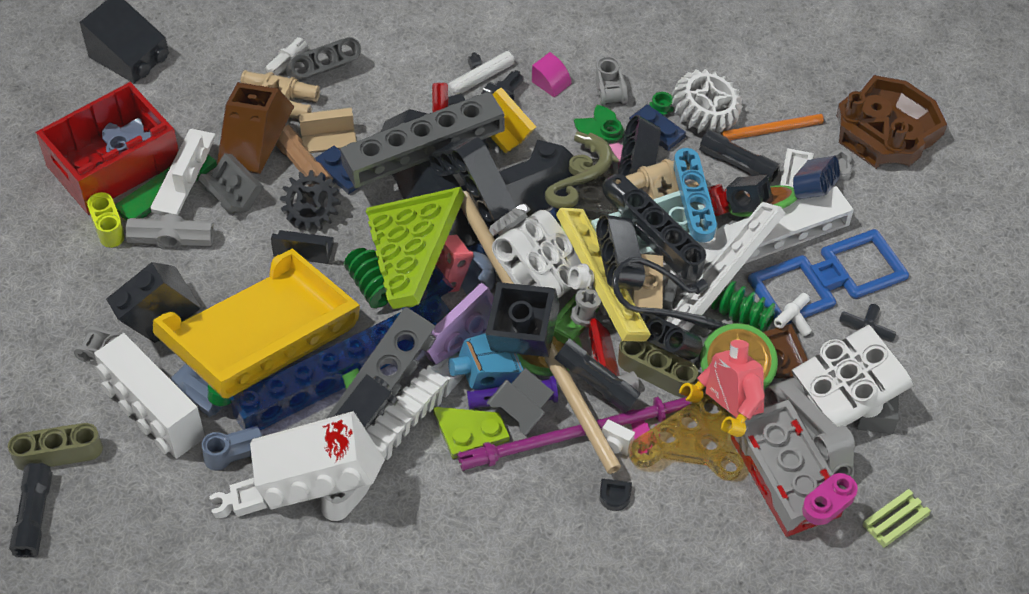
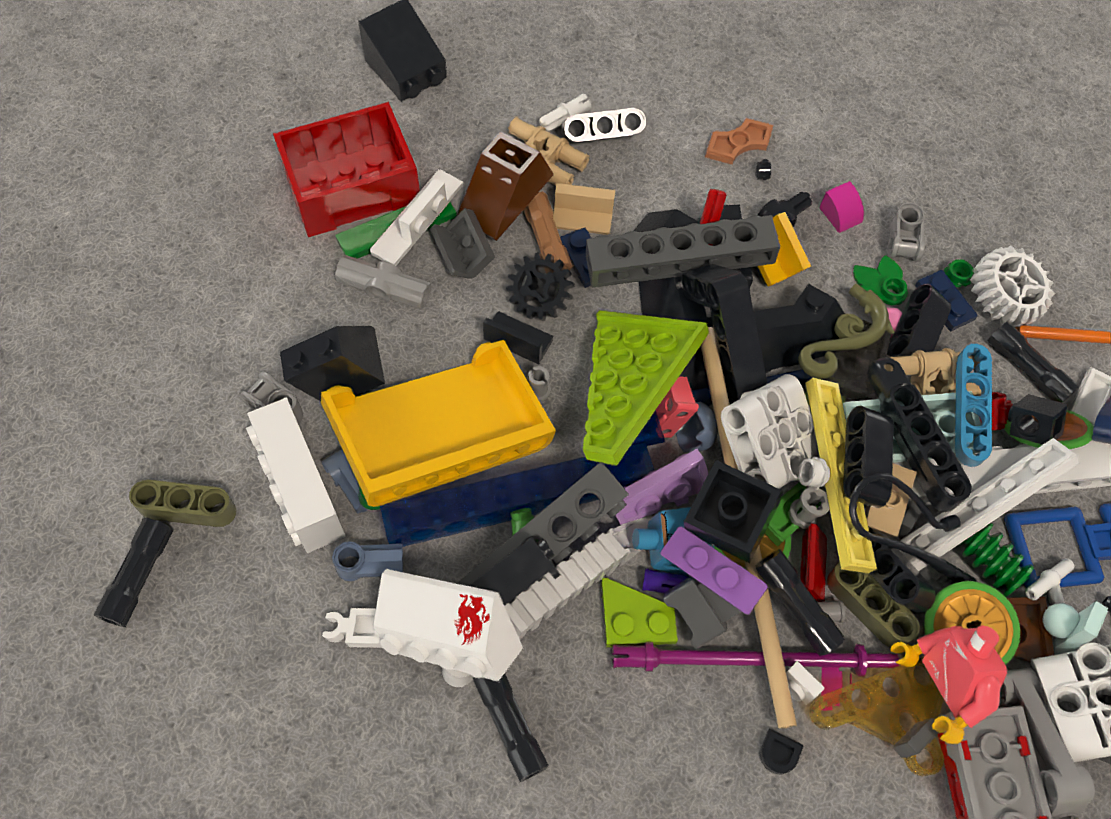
camera: 15 degrees right, 10 degrees up
(106, 219) = (321, 248): neon yellow beam -> none
(117, 137) = (361, 159): sand blue plate -> none
(332, 271) = (539, 382): none -> light grey pin
(365, 272) = (574, 385): green piece -> none
(406, 546) = (520, 744): none -> black axle
(441, 48) = (730, 144): none -> nougat tile
(481, 73) = (767, 184): white axle -> none
(509, 220) = (751, 382): light grey gear -> none
(520, 367) = (714, 570): none -> medium lavender piece
(714, 447) = (916, 739): none -> dark grey tile
(808, 335) = (1073, 628): none -> light aqua tile

